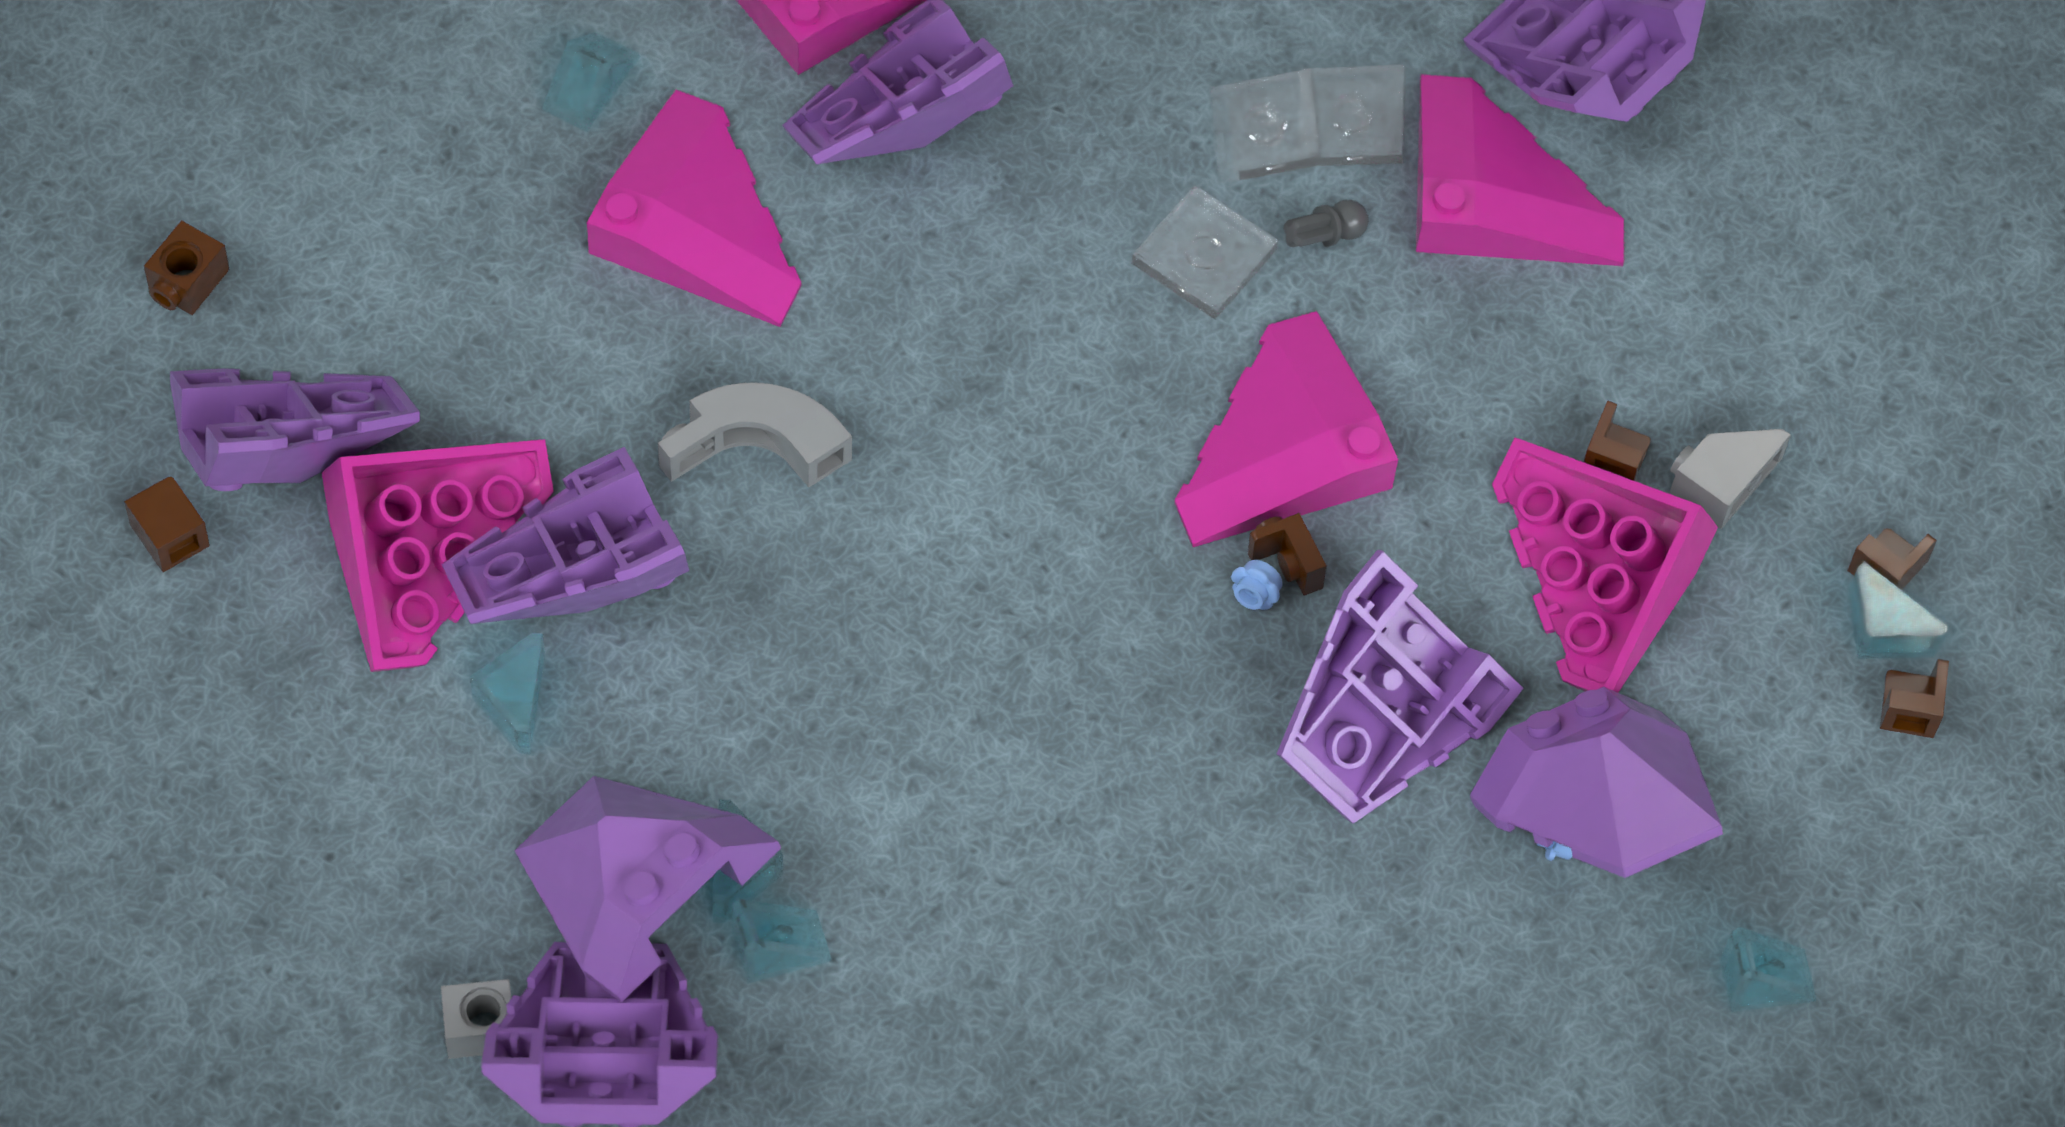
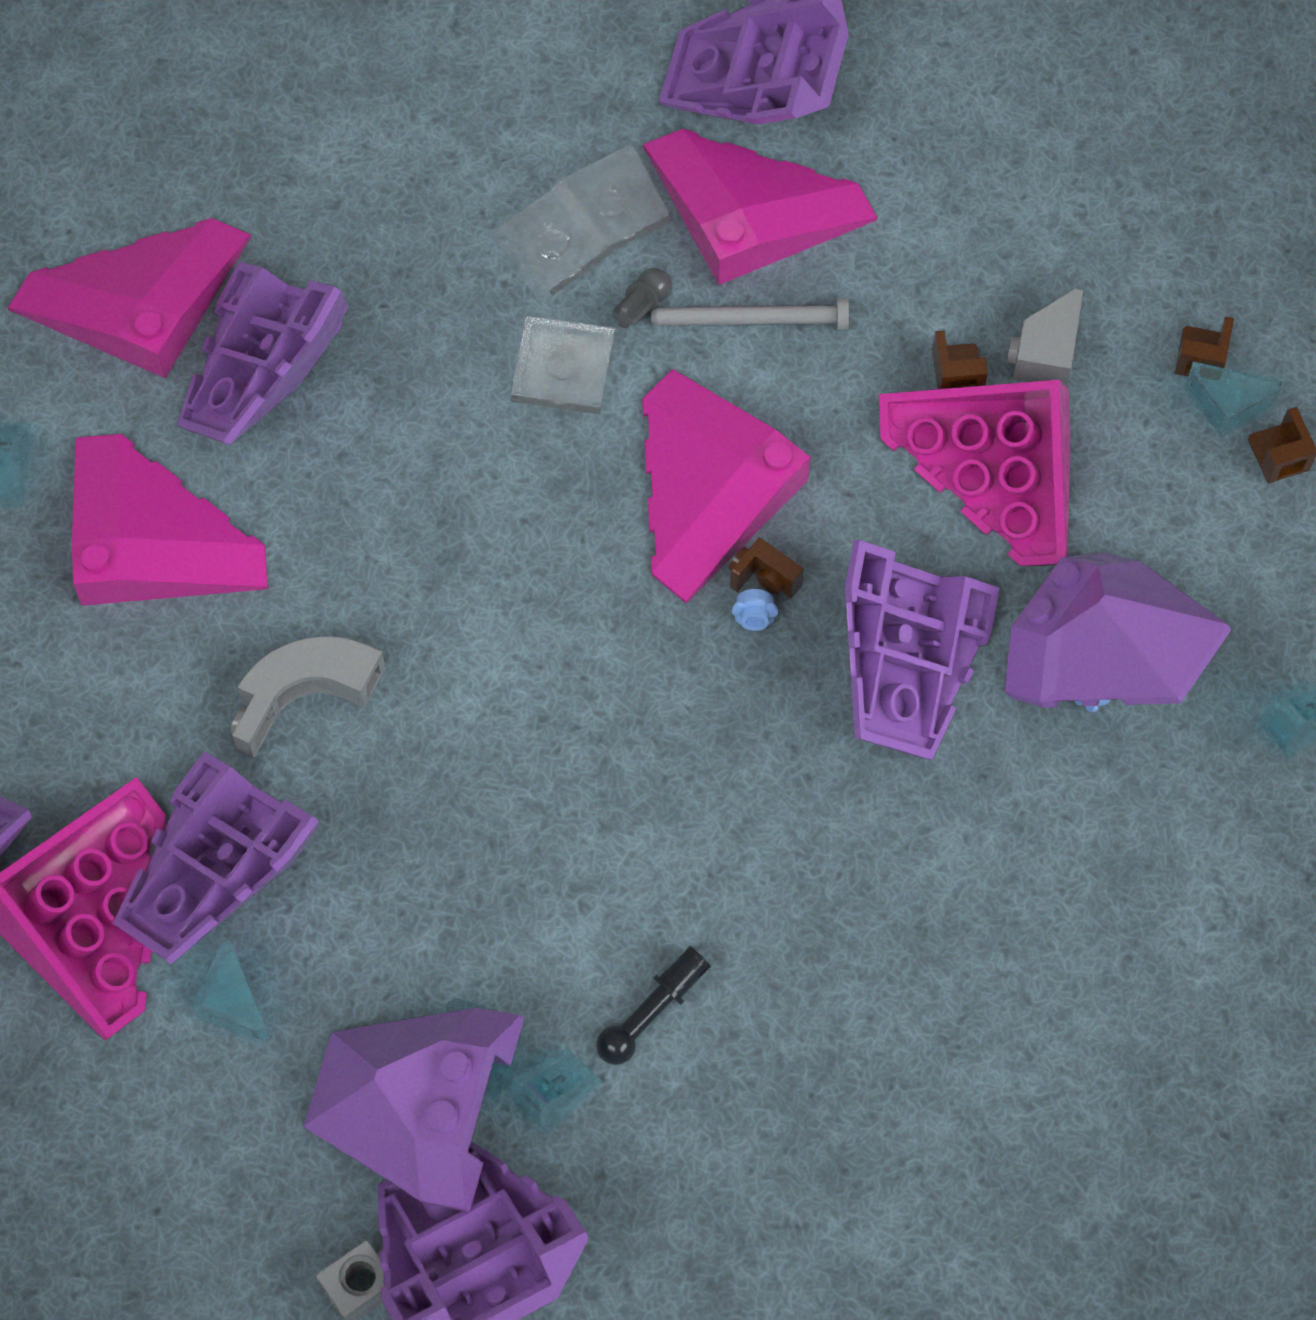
camera: 25 degrees left, 5 degrees up
(869, 932) = (618, 1043): none -> black pin
(1520, 338) = (754, 315): none -> light grey bar

